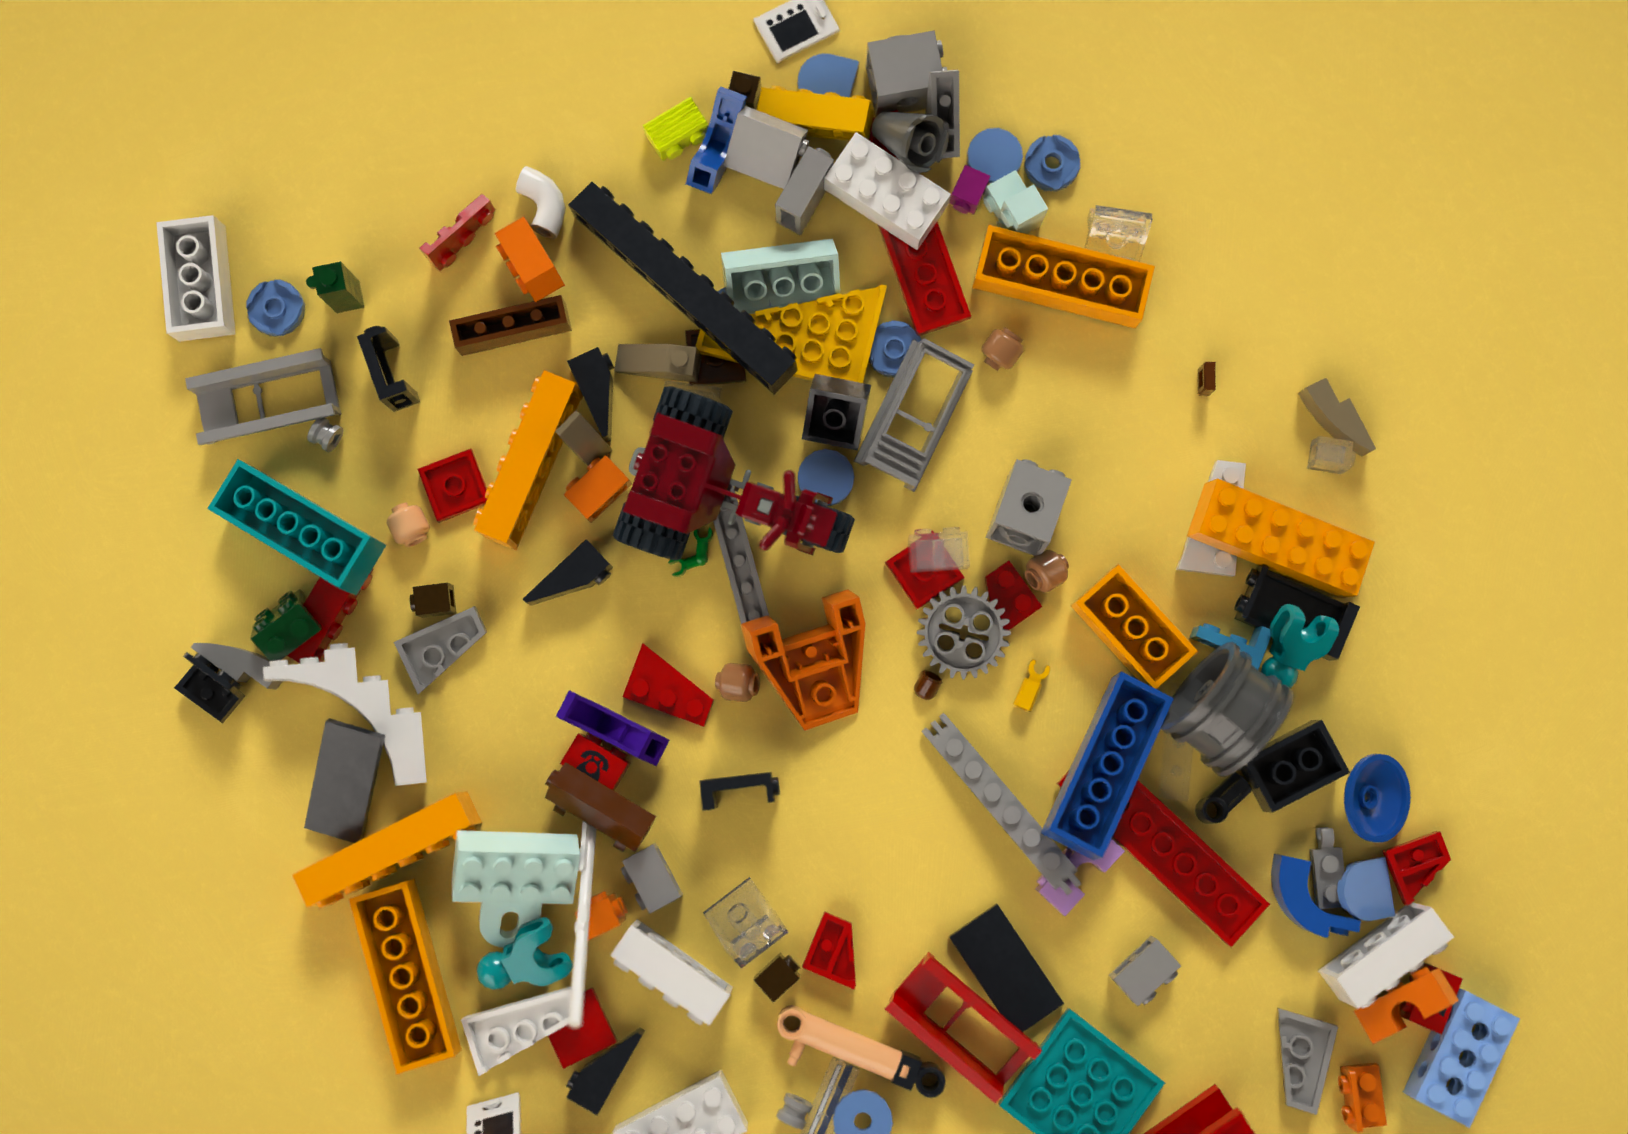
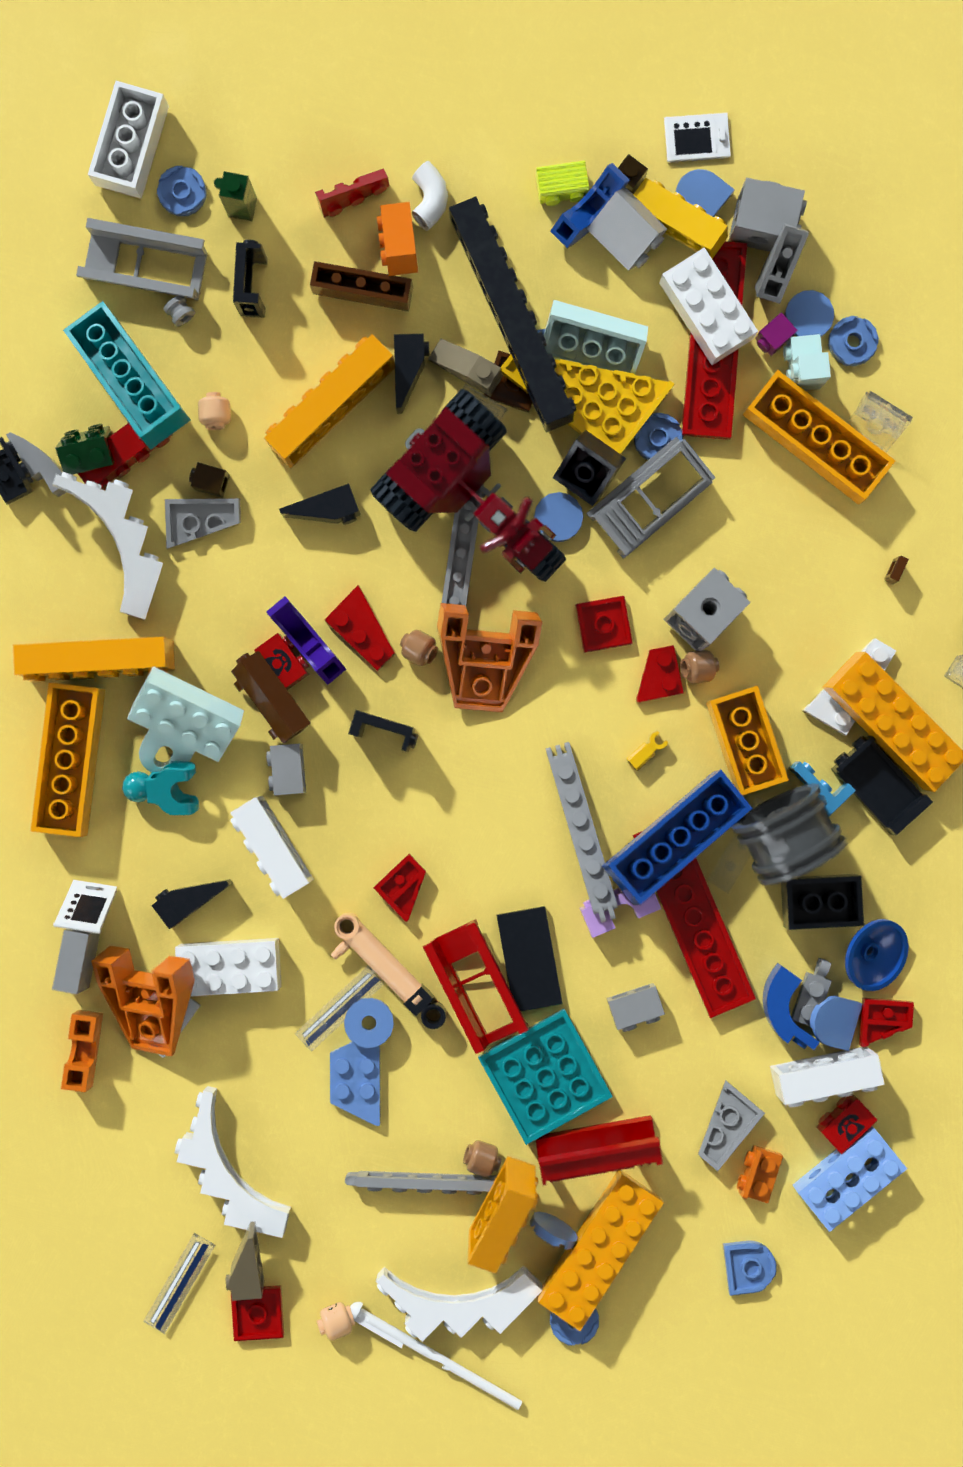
camera: 30 degrees right, 5 degrees up
(344, 781) = (82, 590): black tile -> none
(454, 485) = (263, 395): red tile -> none
(510, 1028) = (135, 836): white wing -> none
(583, 439) = (380, 404): dark tan slope -> none
(586, 866) = (218, 780): white bar -> none
(593, 1036) = (182, 858): red tile -> none
(597, 488) = (374, 446): orange brick -> none
(605, 913) = (237, 779): orange brick -> none
(698, 559) = (431, 538): green arm -> none
(745, 923) = (344, 835): clear slope -> none
(778, 976) = (352, 886): dark brown brick -> none
(794, 1111) = (320, 992): light grey wheel -> none
(803, 190) = (642, 277): light grey brick -> none
(912, 138) = (747, 272): dark grey cone -> none
(927, 685) = (566, 714): reddish brown piece -> none
(938, 550) = (621, 613): clear brick -> none
(970, 606) = (626, 668): light grey gear -> none
(1002, 349) = (744, 475): medium nougat head -> none
(1224, 797) = (757, 902): black piece -> none
(1297, 647) = (866, 811): teal piece -> none
(1427, 991) = (845, 1118): orange arch -> none

